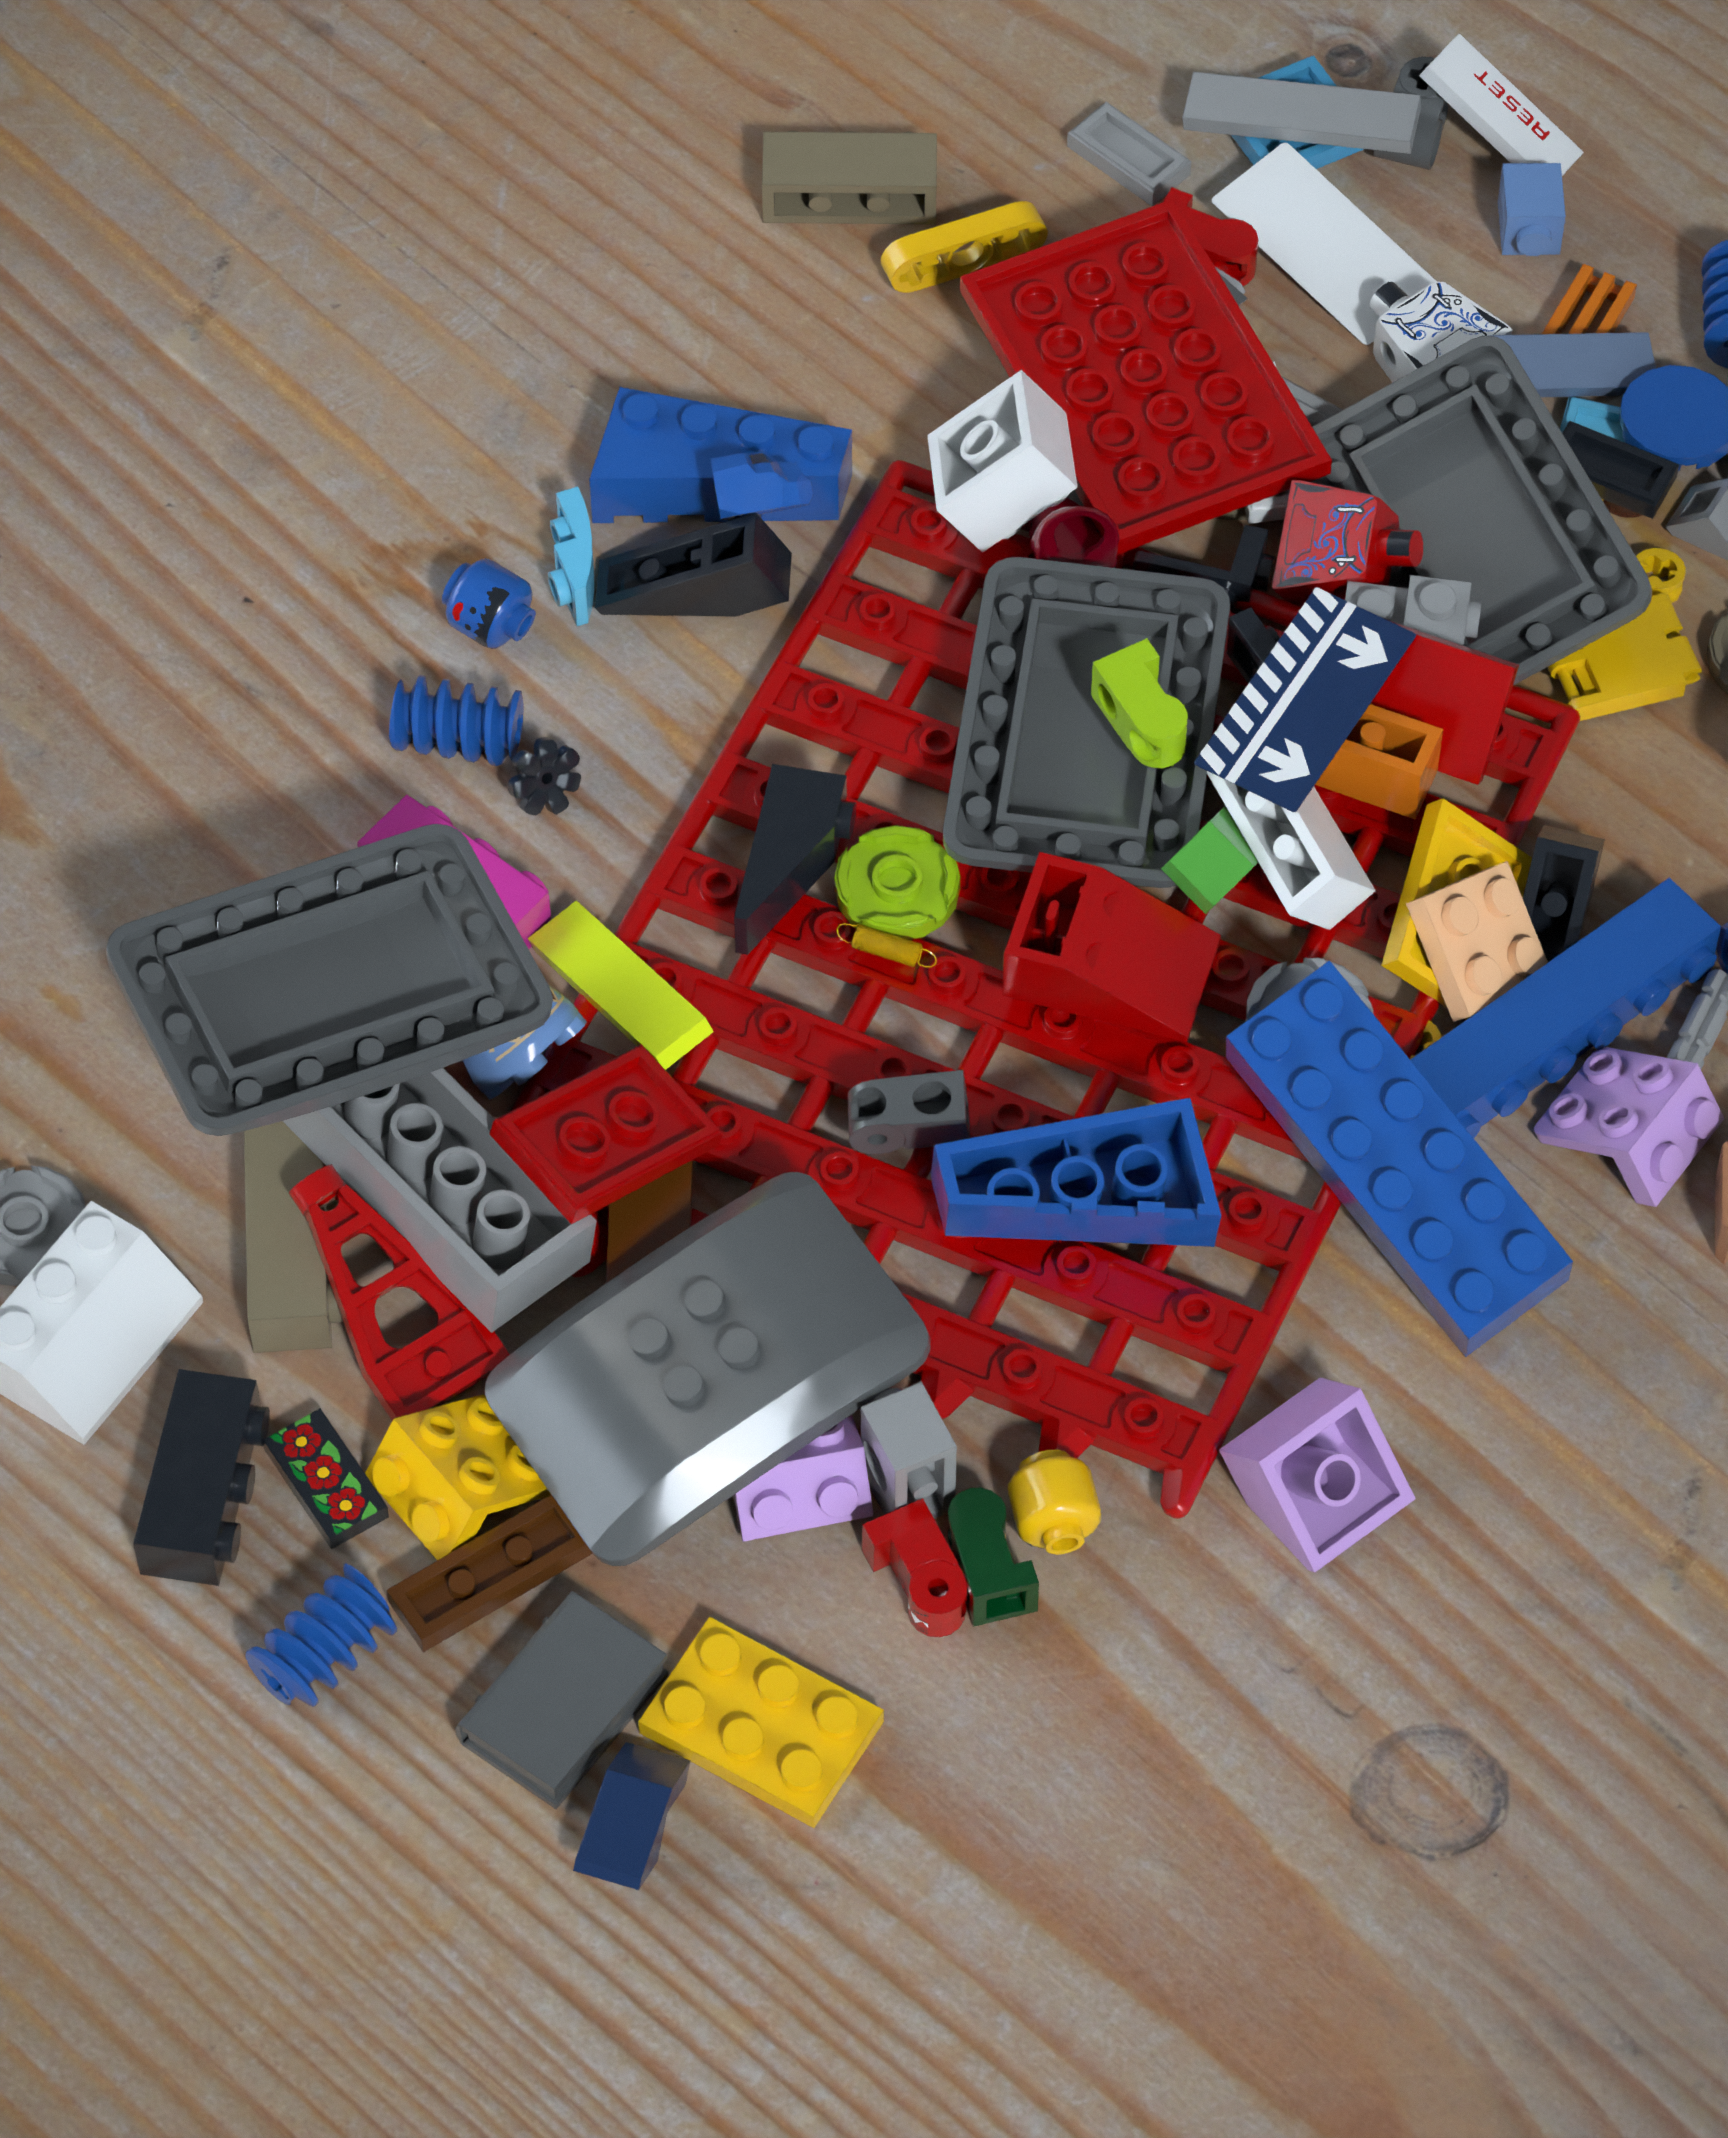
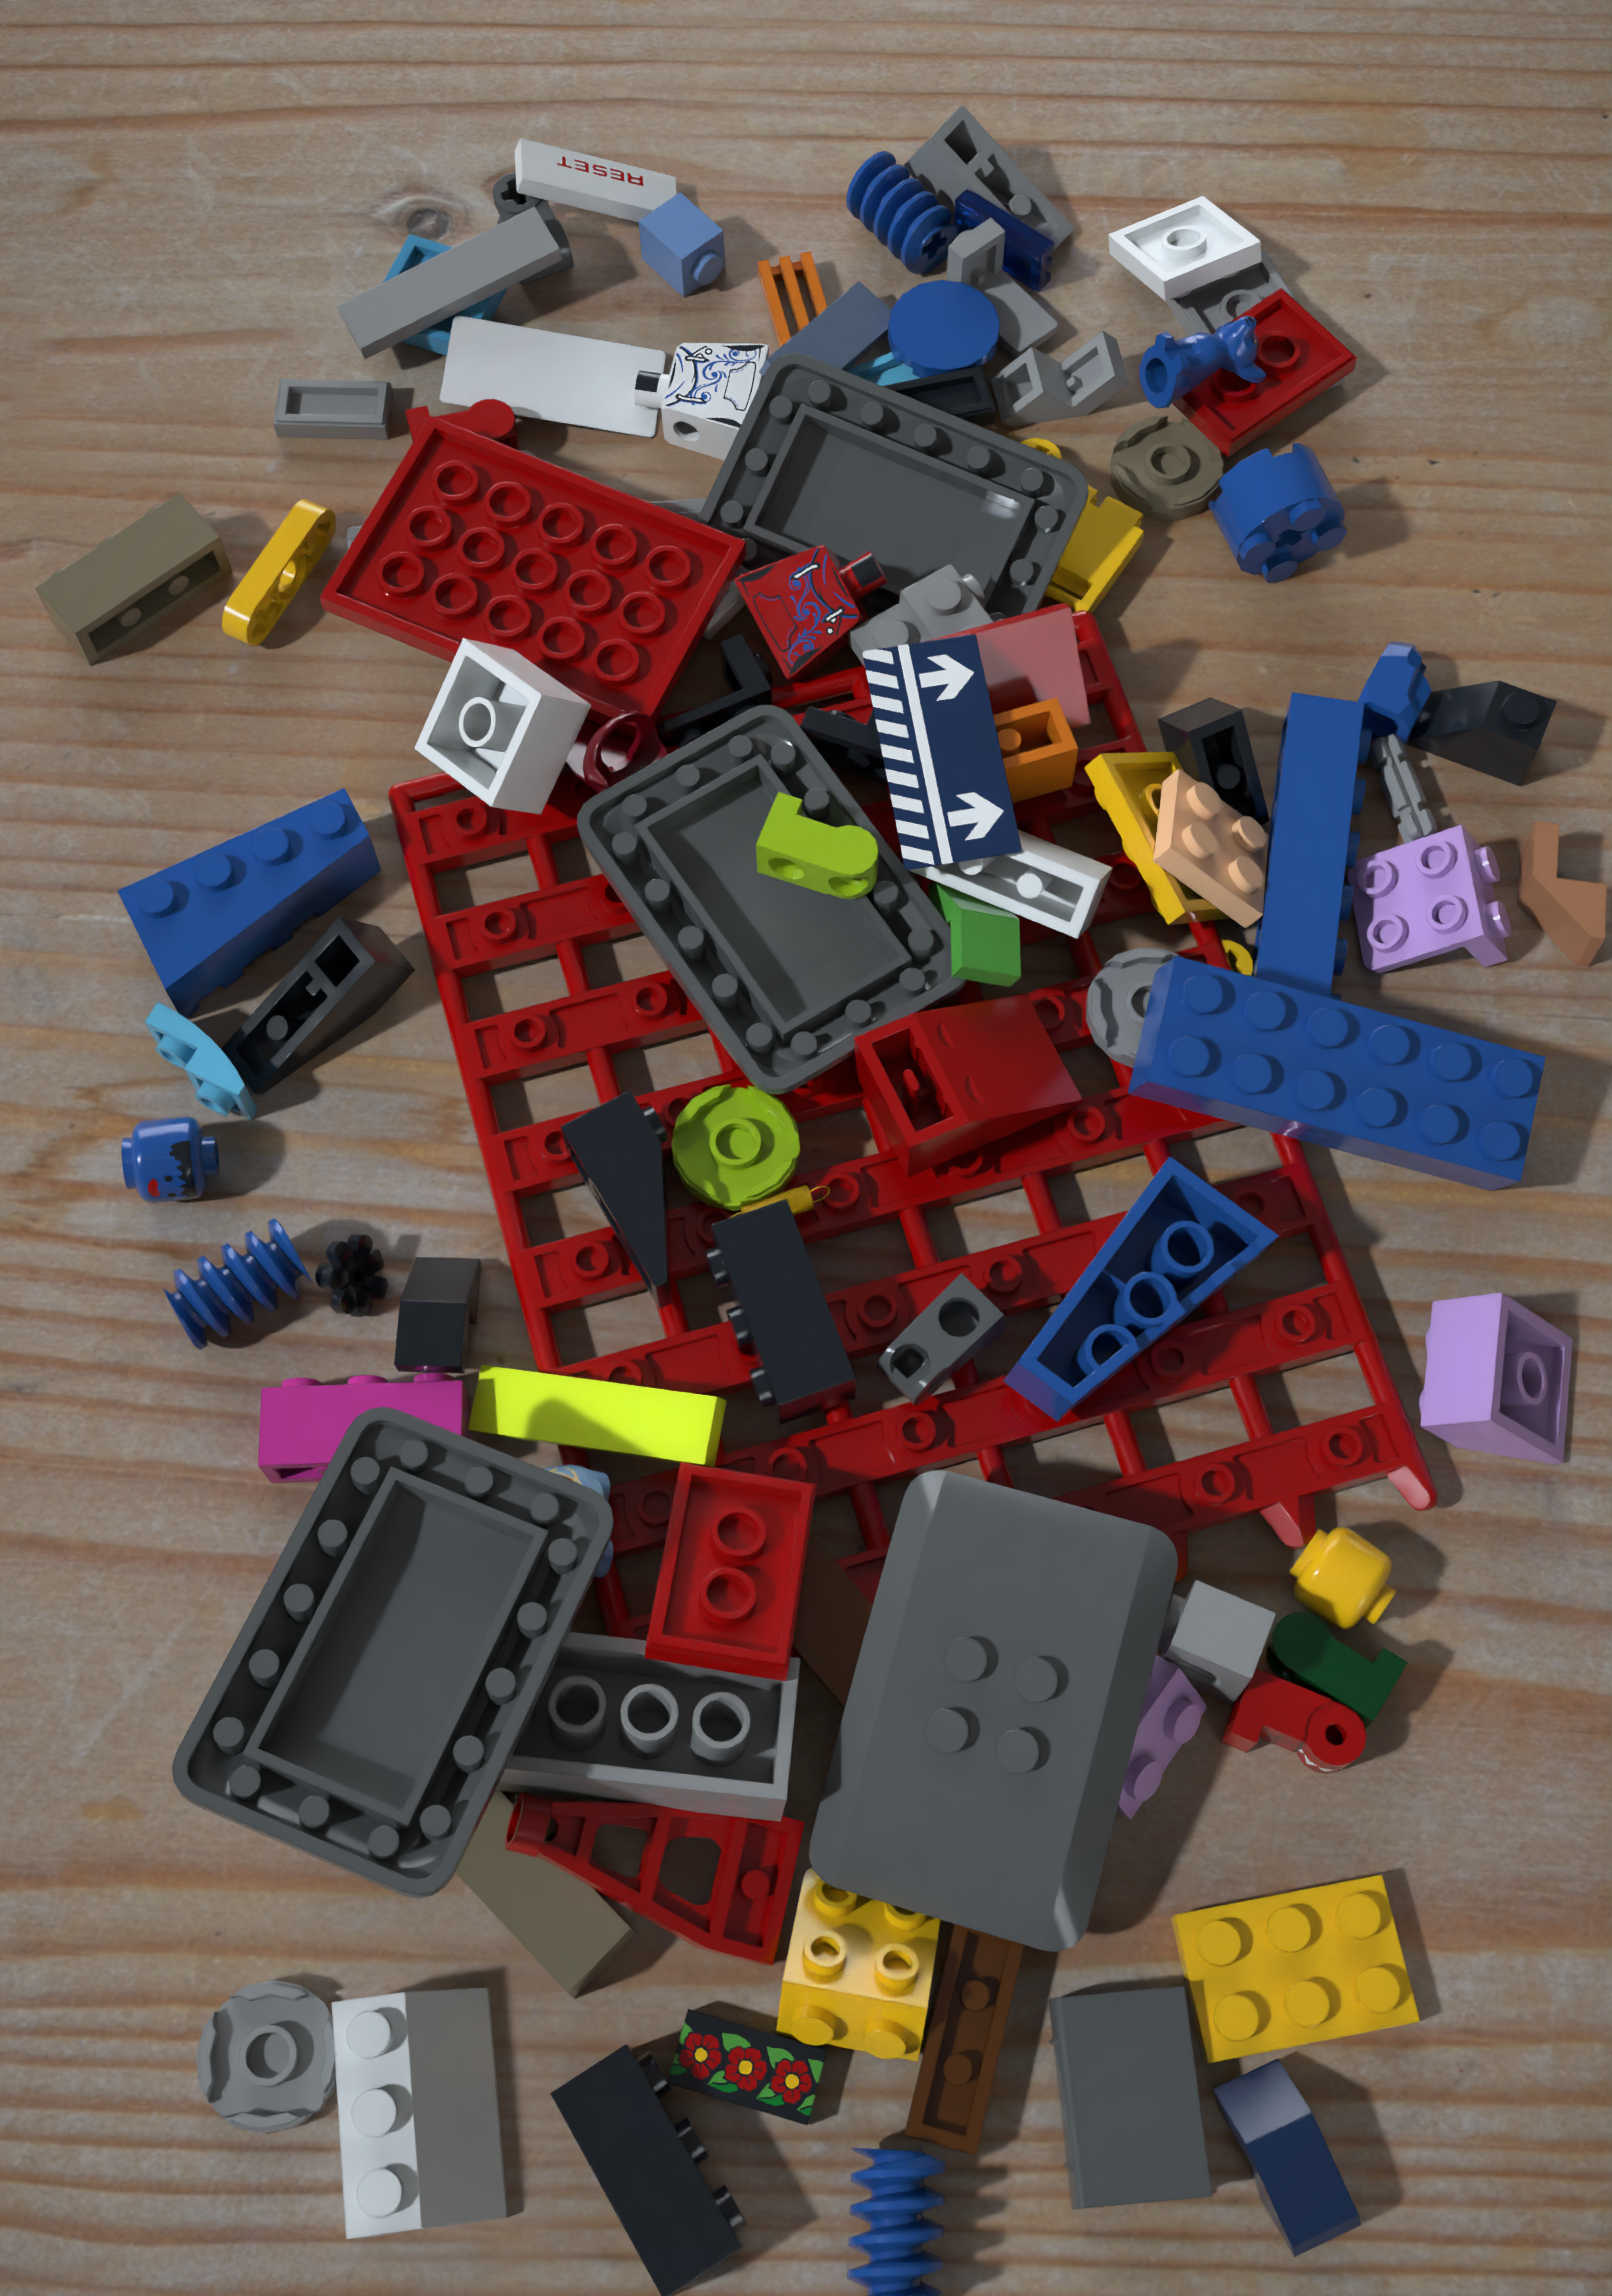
camera: 40 degrees left, 10 degrees up
(577, 838) = (436, 1314): none -> black slope
(758, 485) = (316, 893): blue rock -> none
(813, 1009) = (780, 1313): none -> black brick

